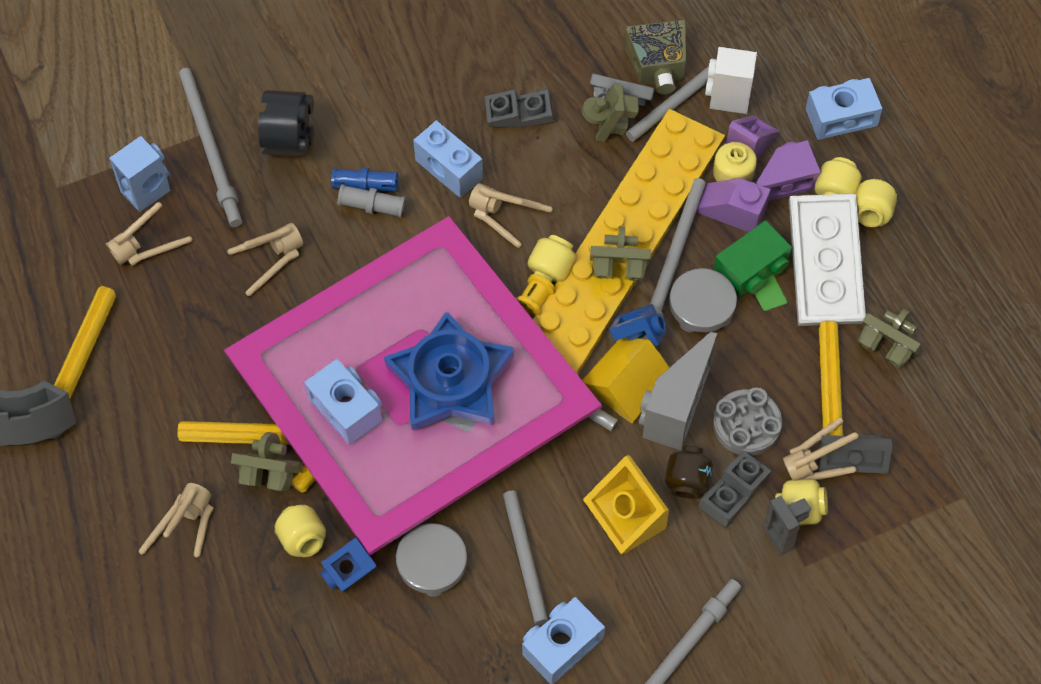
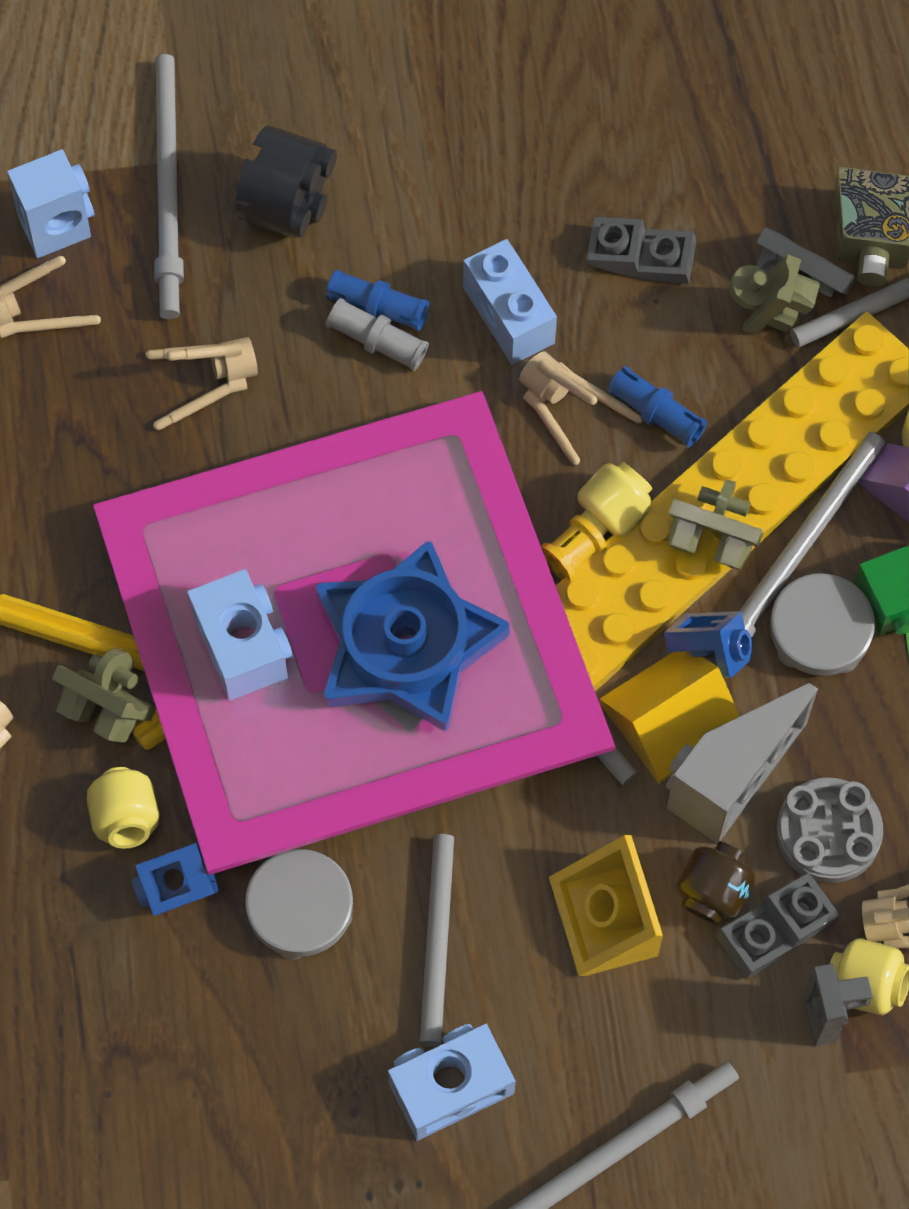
camera: 15 degrees right, 5 degrees up
(559, 198) = (657, 406): none -> blue pin

